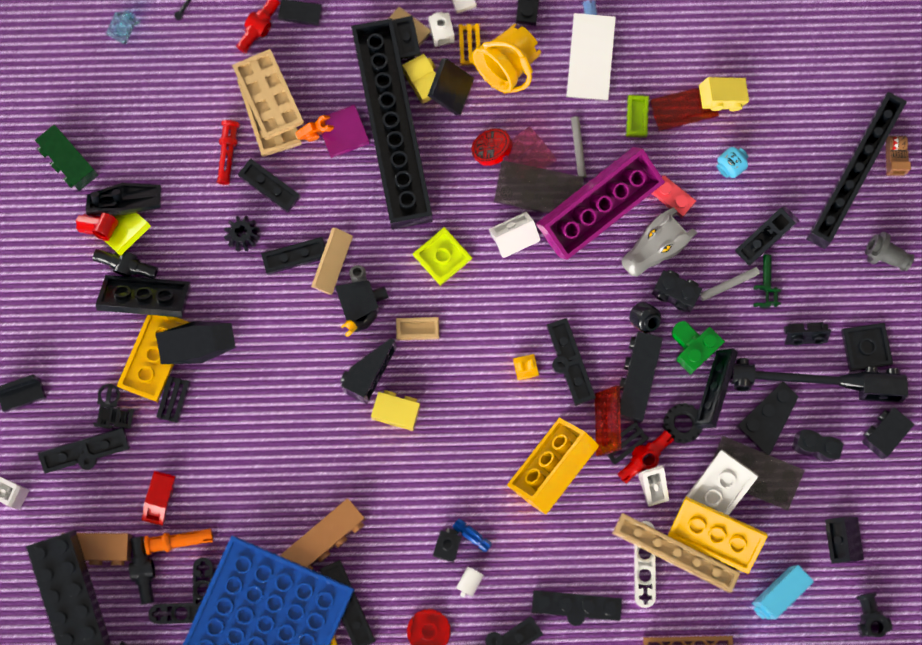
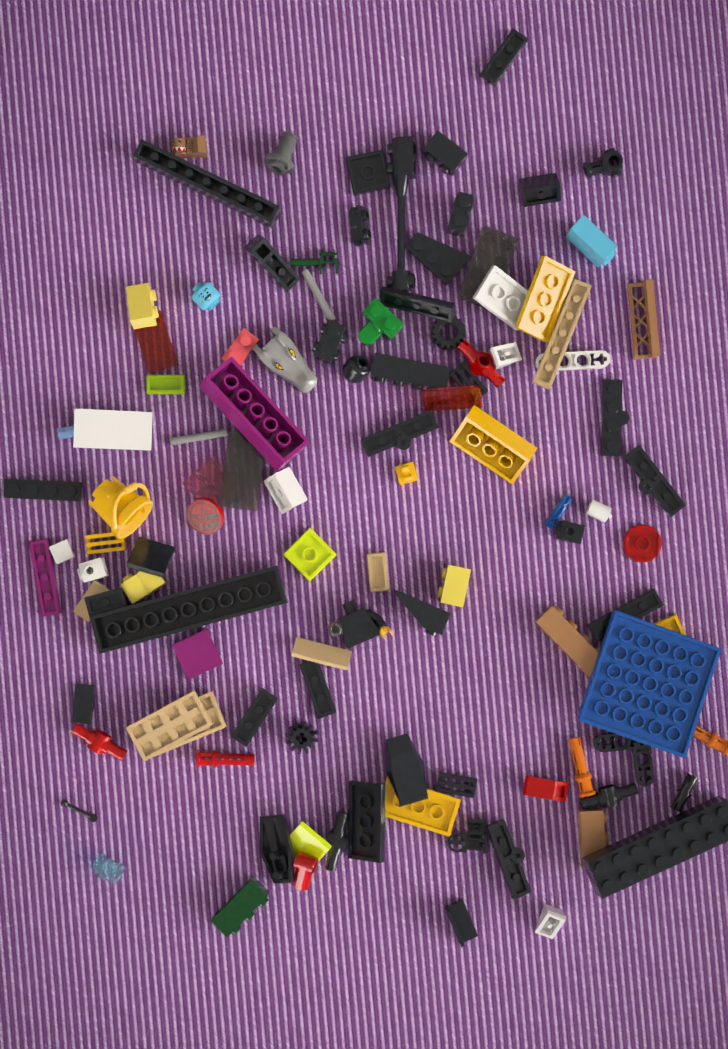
camera: 95 degrees left, 10 degrees up
(313, 129) = (202, 682): orange plate -> none

